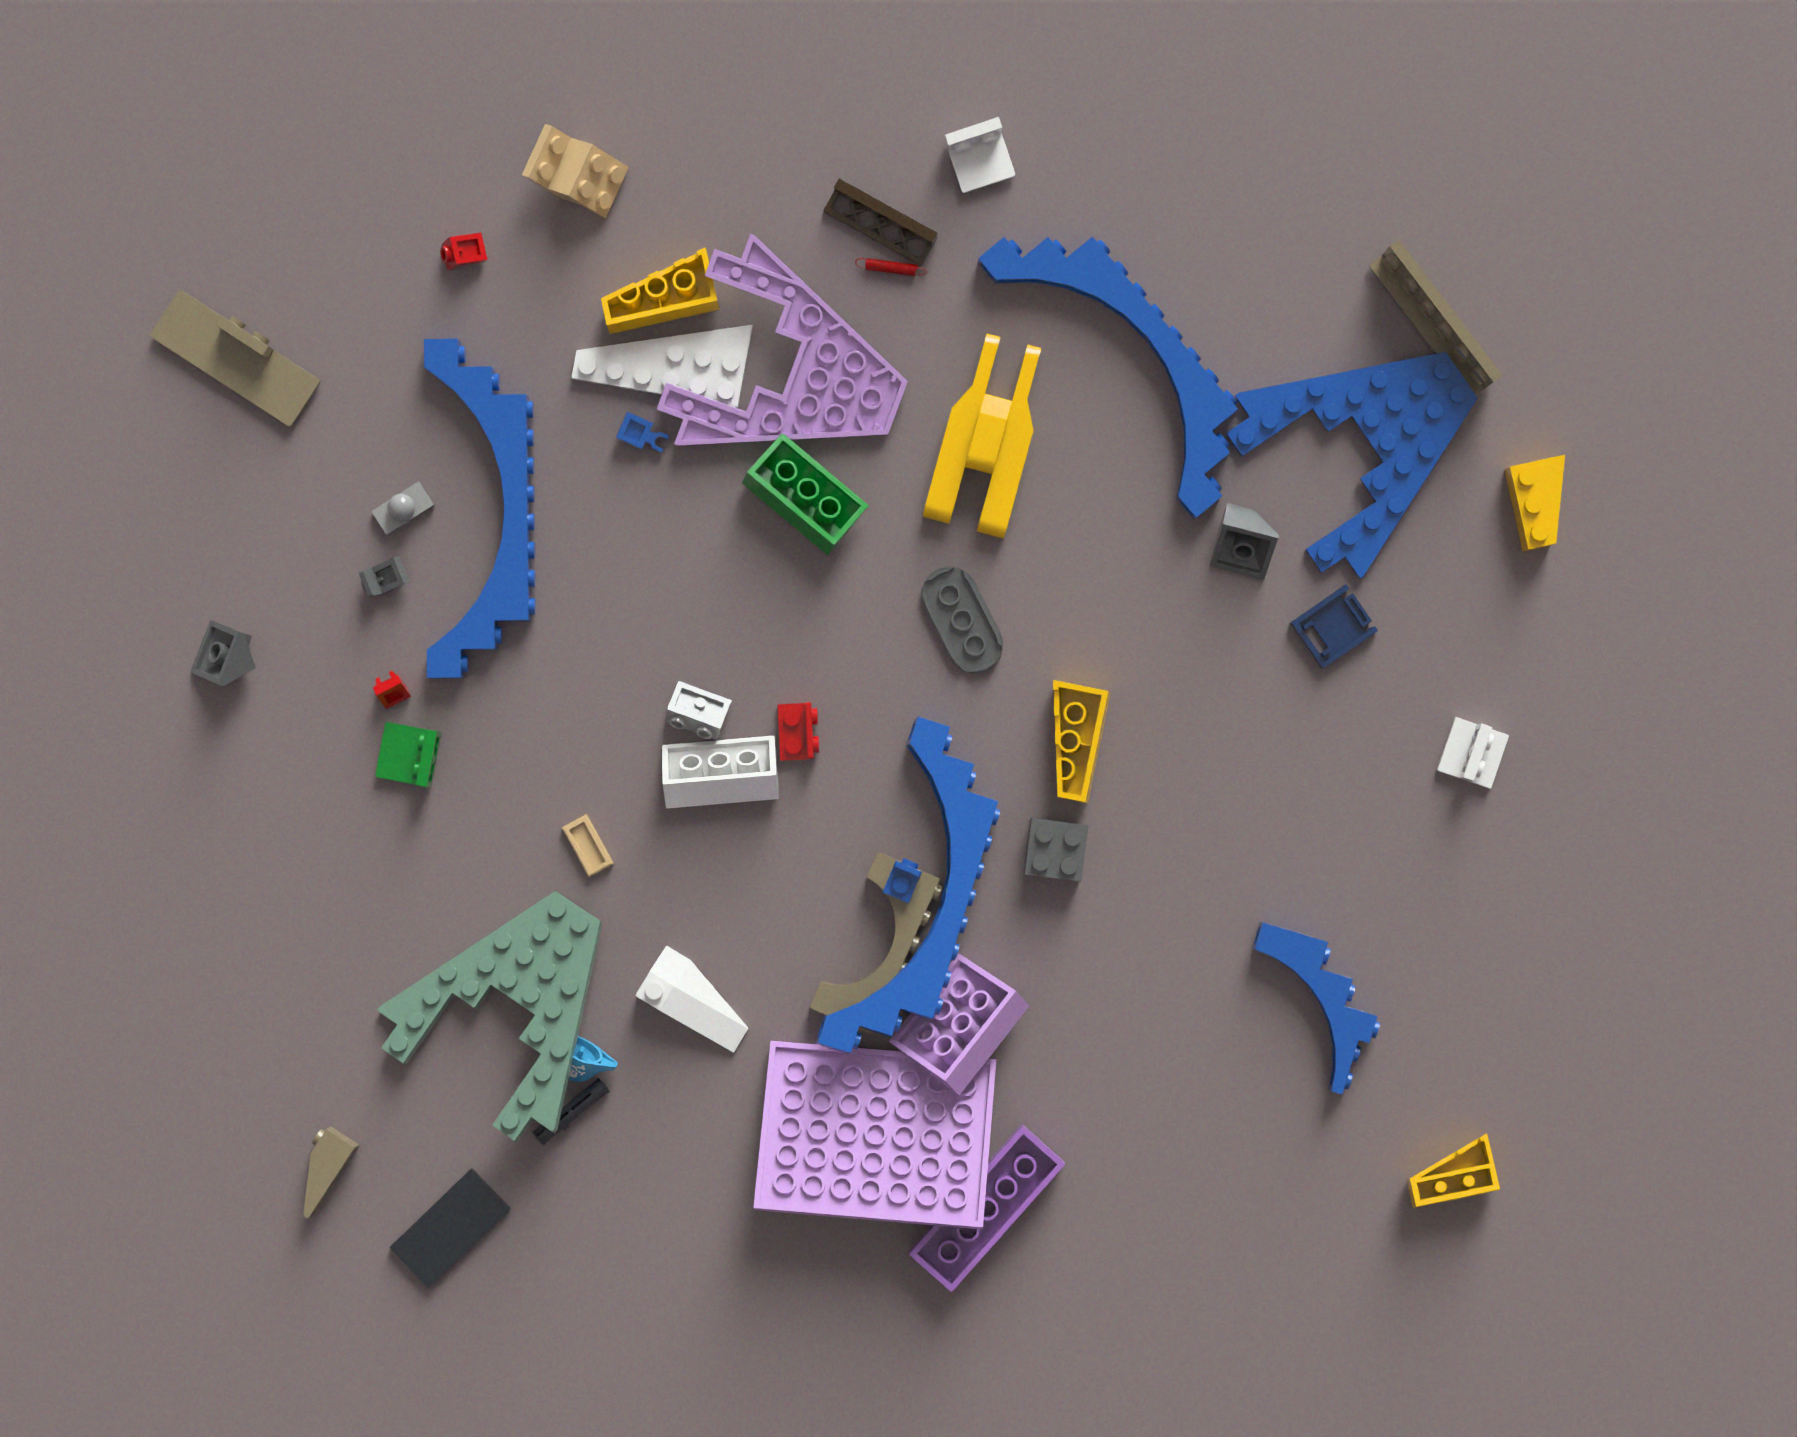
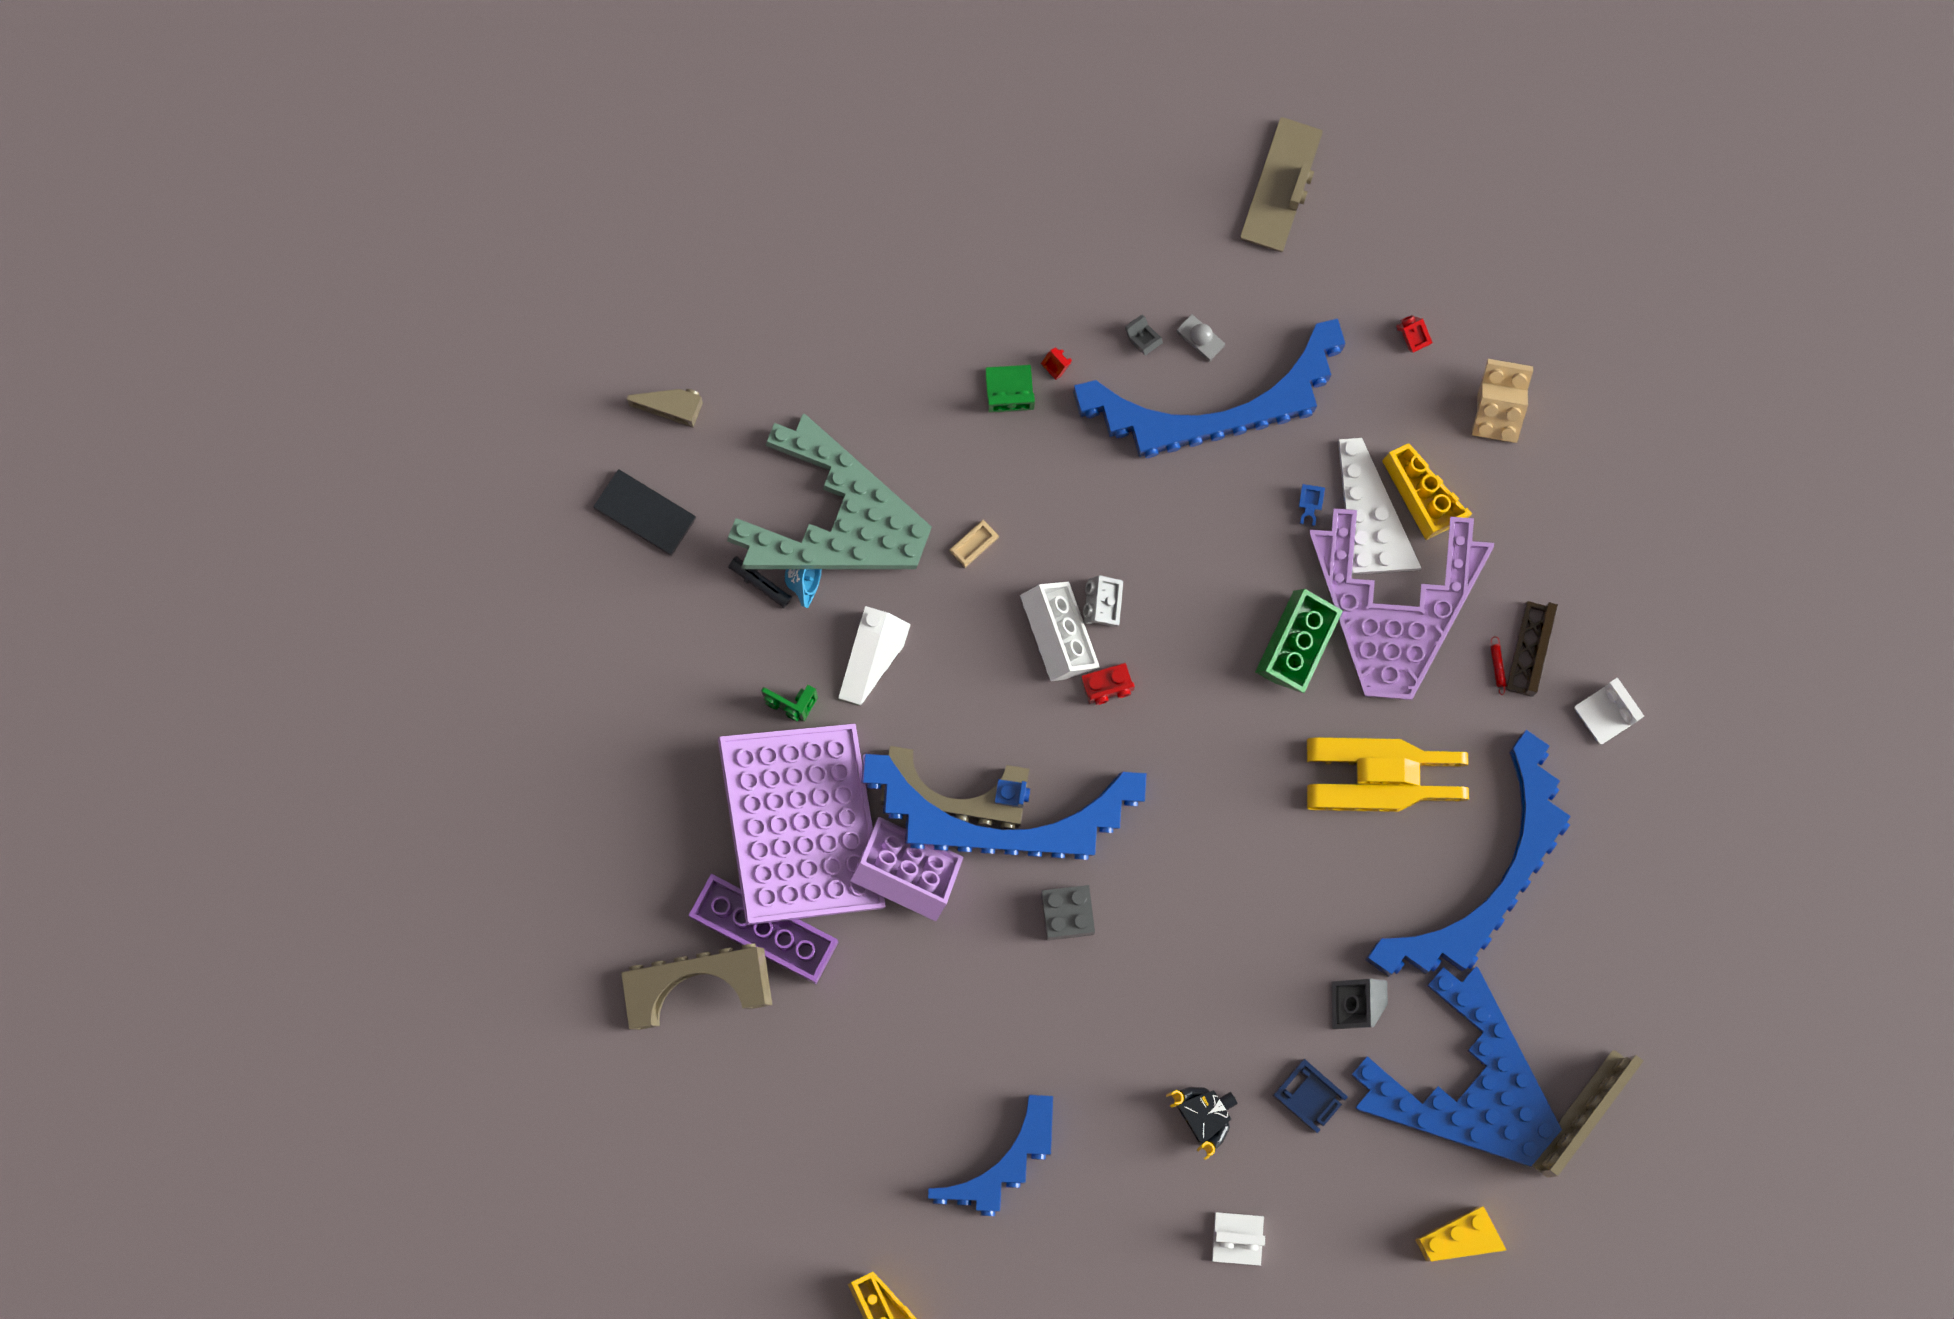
camera: 65 degrees right, 10 degrees down
(223, 655) = (1050, 231): dark grey slope -> none
(730, 1095) = (805, 702): none -> green bracket
(962, 619) = (1232, 792): dark grey tile -> none
(1032, 1246) = (648, 987): none -> dark tan arch
(1078, 734) = (1164, 907): yellow wedge -> none
(1327, 753) = (1205, 1115): none -> black torso

